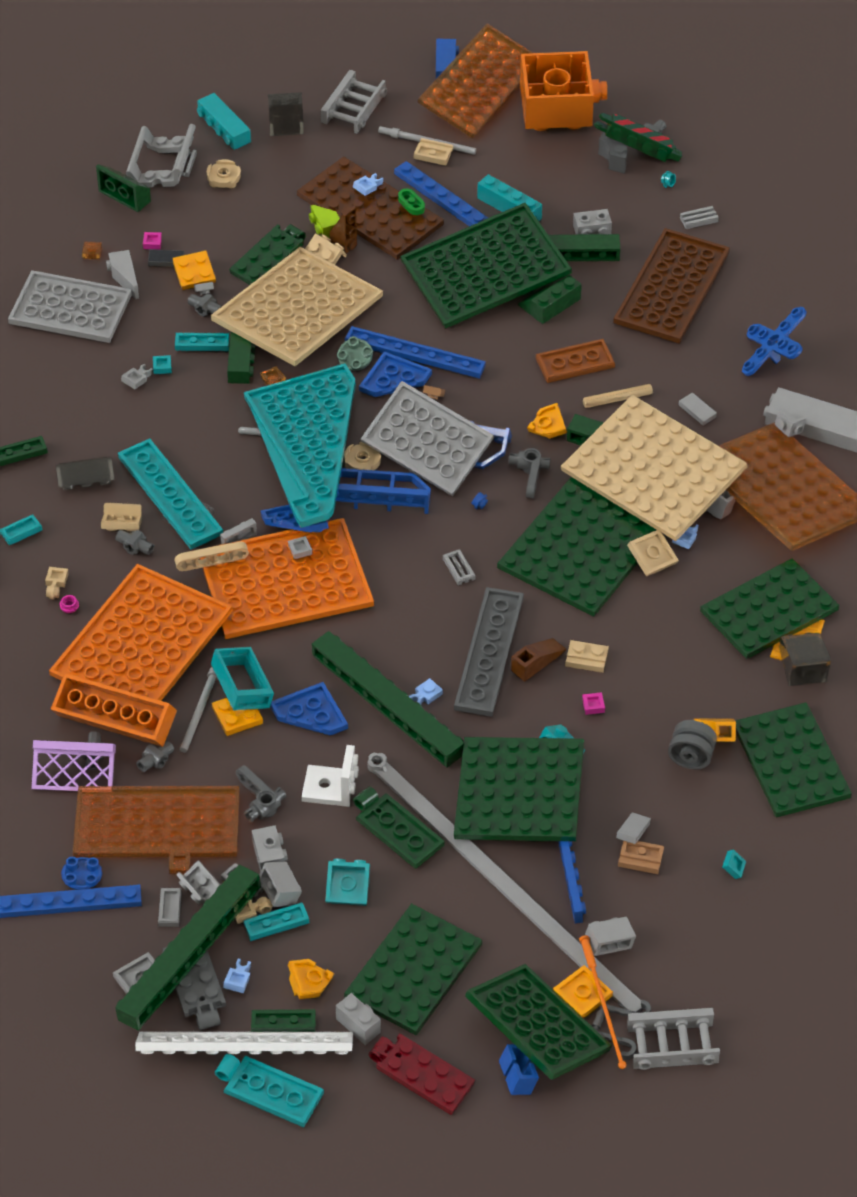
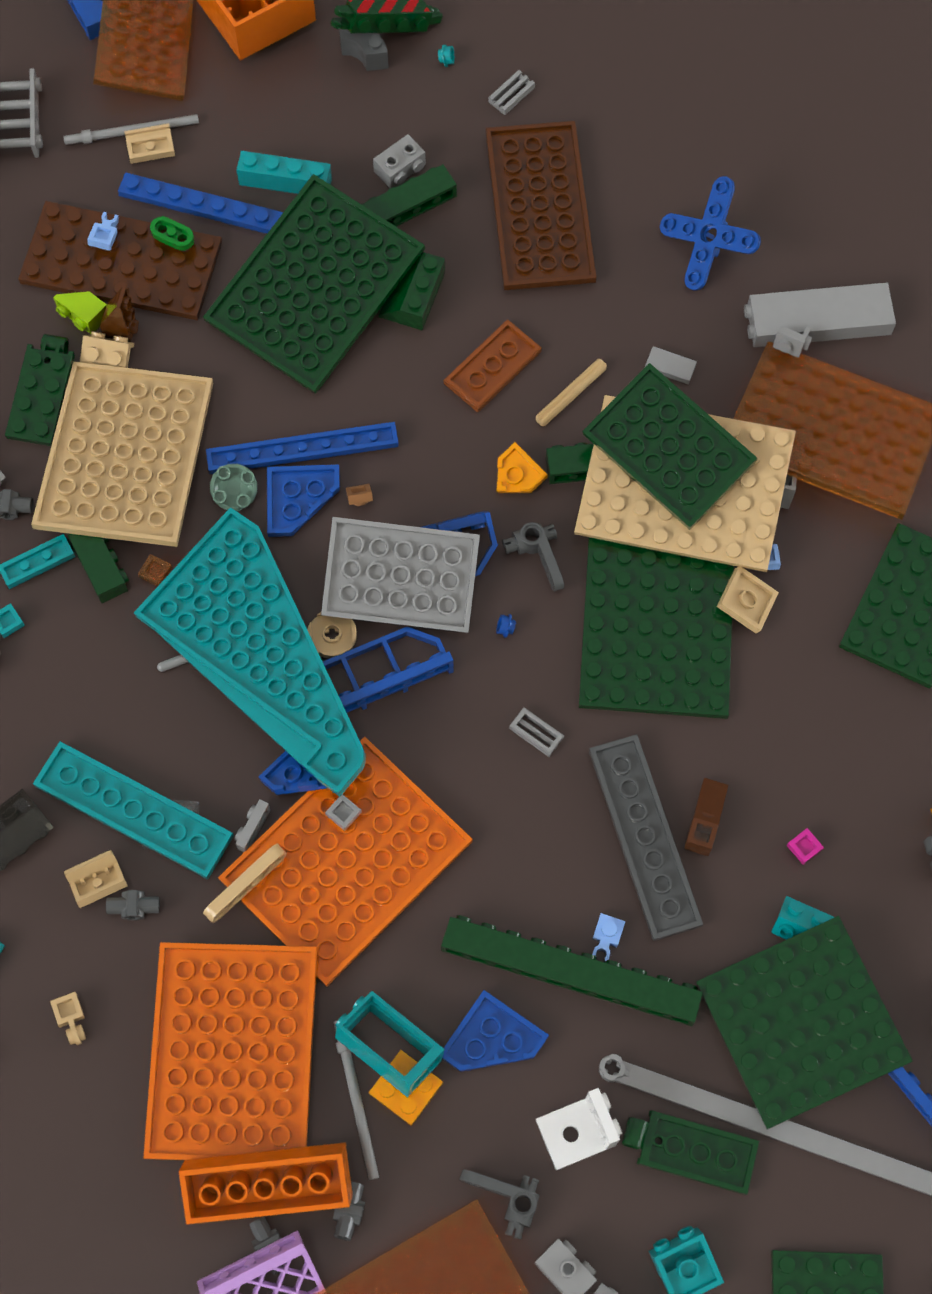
camera: 30 degrees left, 20 degrees up
(69, 604) = (99, 1037): dark pink plate -> none
(587, 656) = (755, 781): tan plate -> none
(653, 436) = (669, 446): none -> dark green plate

